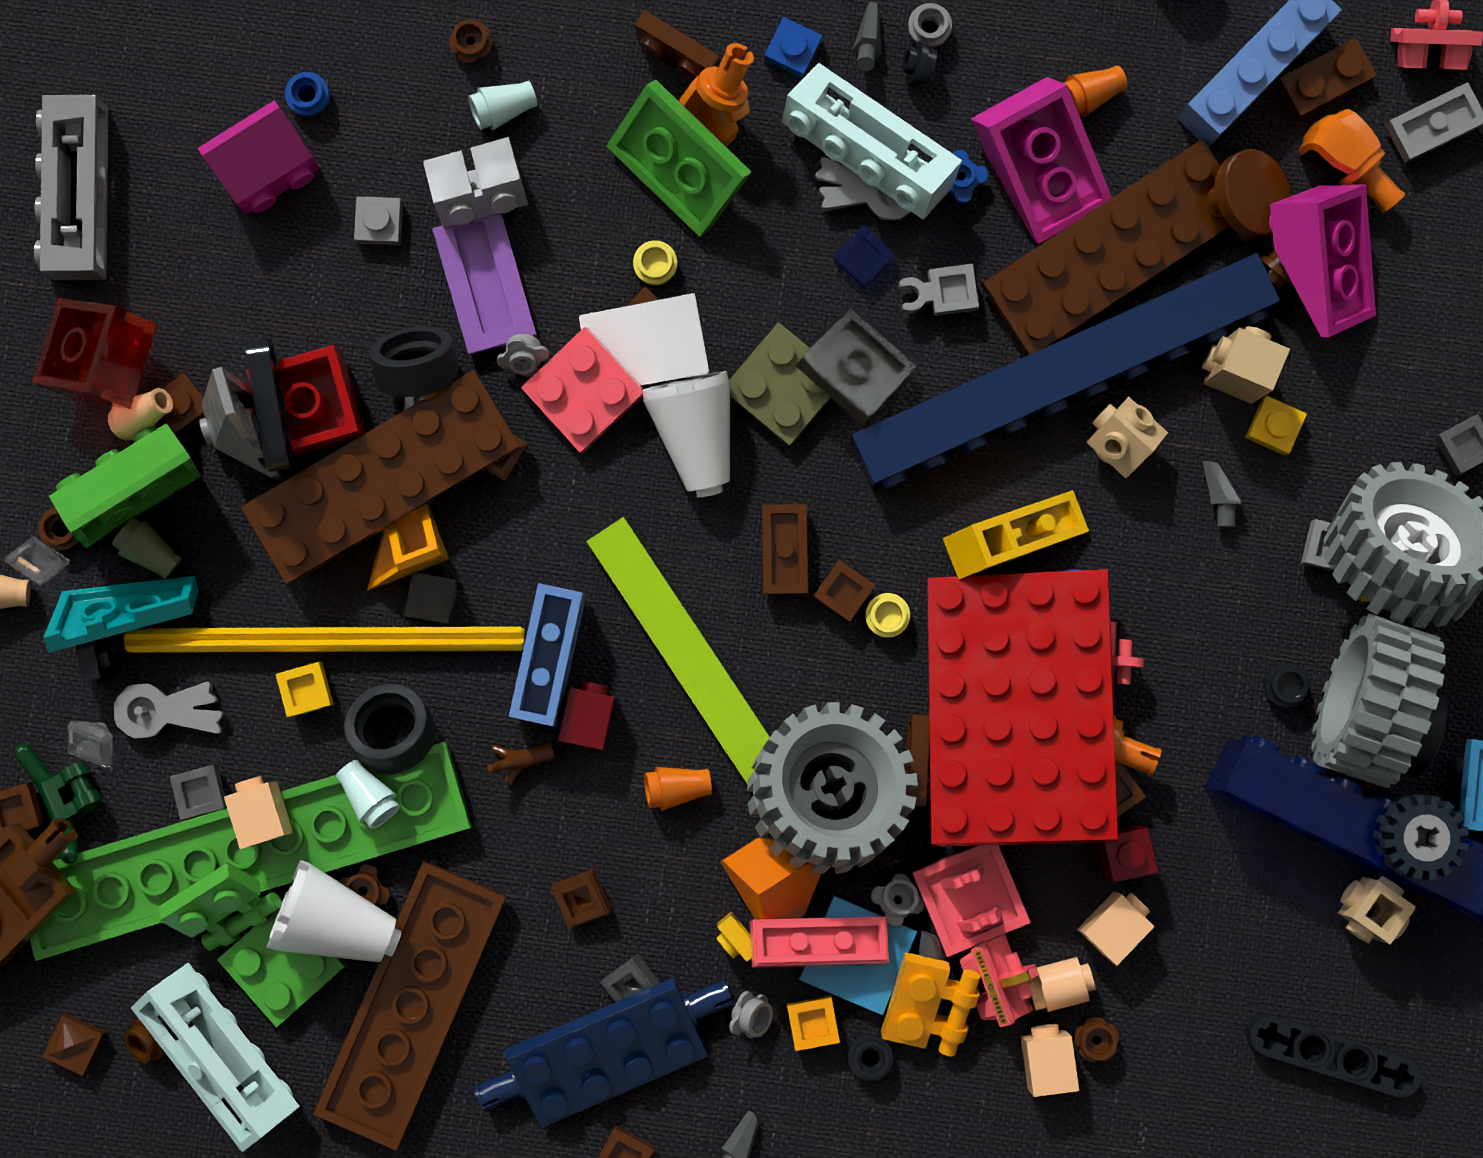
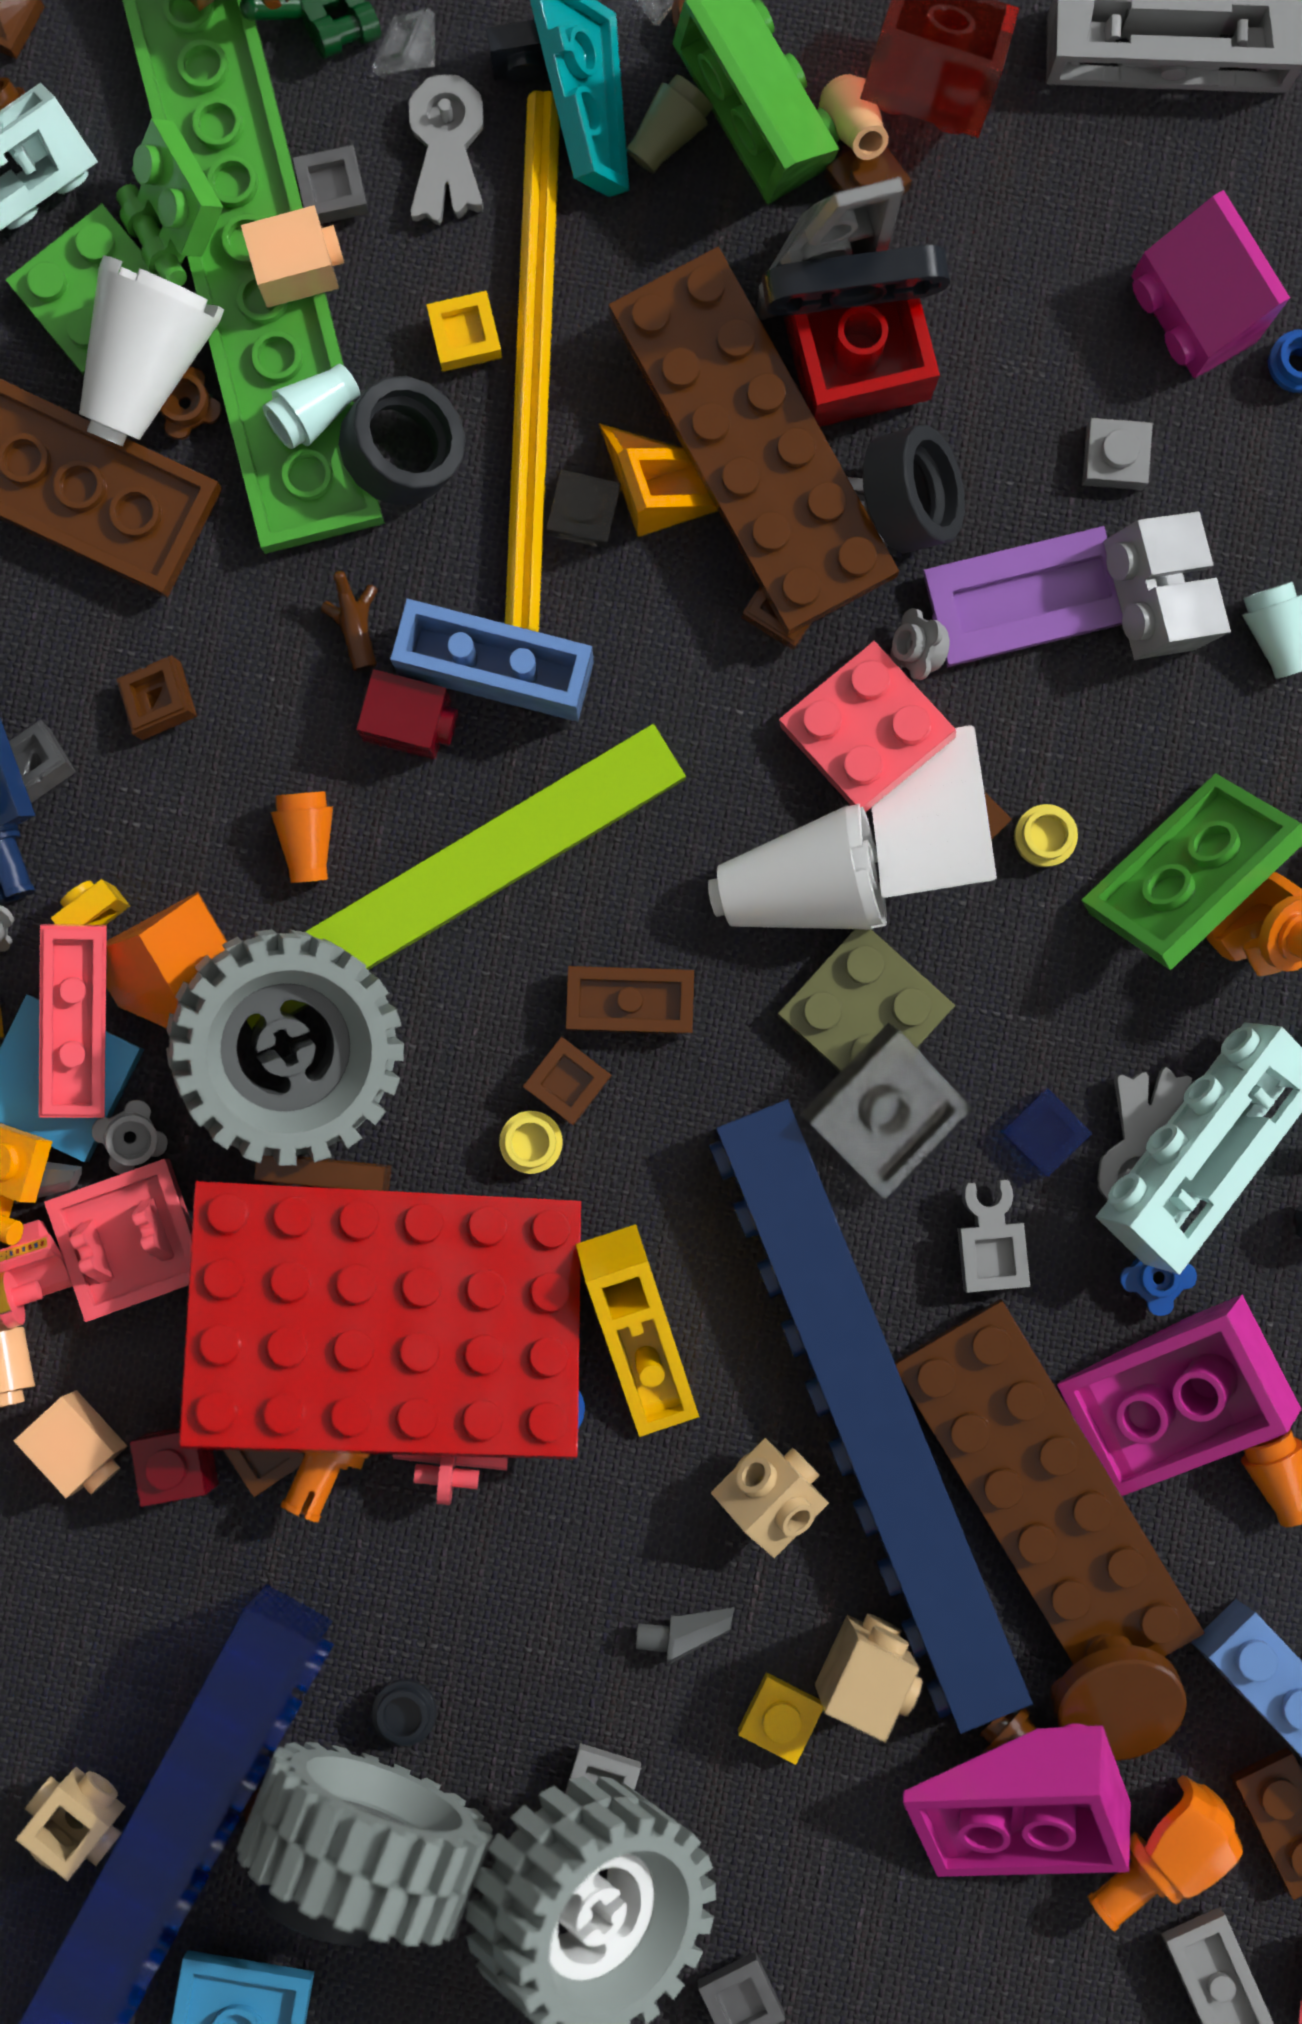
camera: 90 degrees right, 0 degrees up
(1404, 837) = (176, 1874): black wheel -> none

